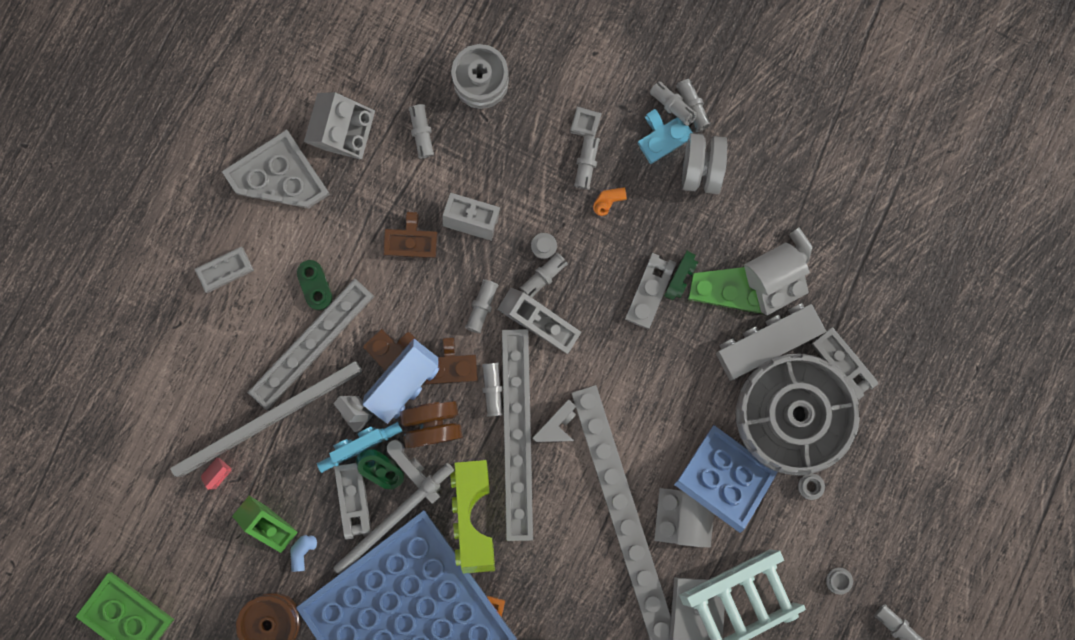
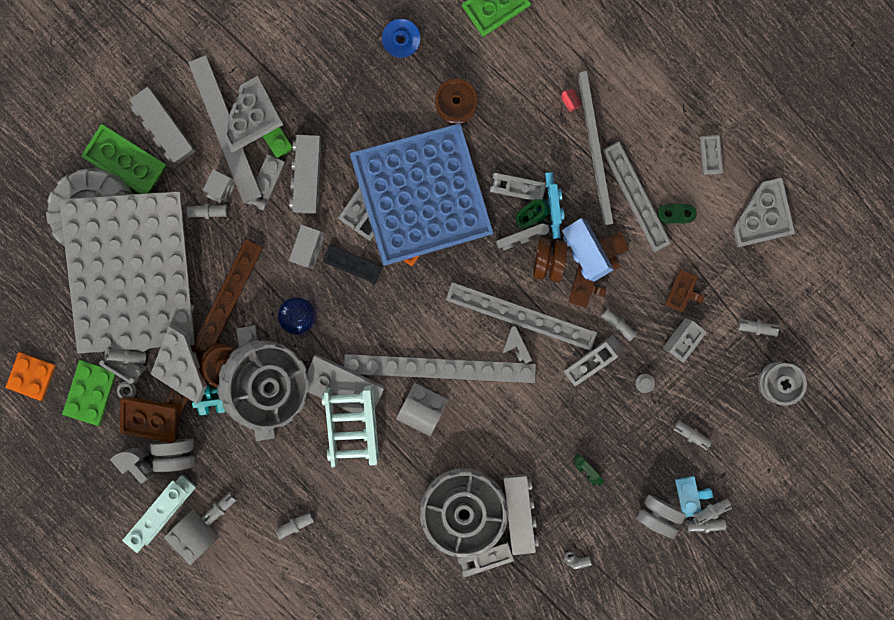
camera: 110 degrees right, 5 degrees up
(264, 524) = (524, 121): bright green slope -> none
(298, 551) = (497, 138): light blue arm -> none
(339, 125) = (784, 271): light grey slope -> none
(353, 411) = (578, 209): light grey bracket -> none
(428, 486) = (509, 243): light grey bar -> none
(476, 549) = (498, 272): lime arch -> none
(492, 389) = (558, 310): light grey pin -> none
(544, 275) = (623, 375): light grey pin -> none
(585, 122) = (721, 445): light grey tile -> none
(606, 199) = (662, 440): orange arm -> none
(650, 292) = (585, 444): light grey plate -> none
(725, 289) = (565, 504): bright green wing -> none
(726, 479) = (438, 447): medium blue plate -> none
(778, 277) = (562, 536): light grey brick -> none
(819, 486) = (410, 509): light grey plate -> none
(839, 581) = (340, 497): light grey plate -> none

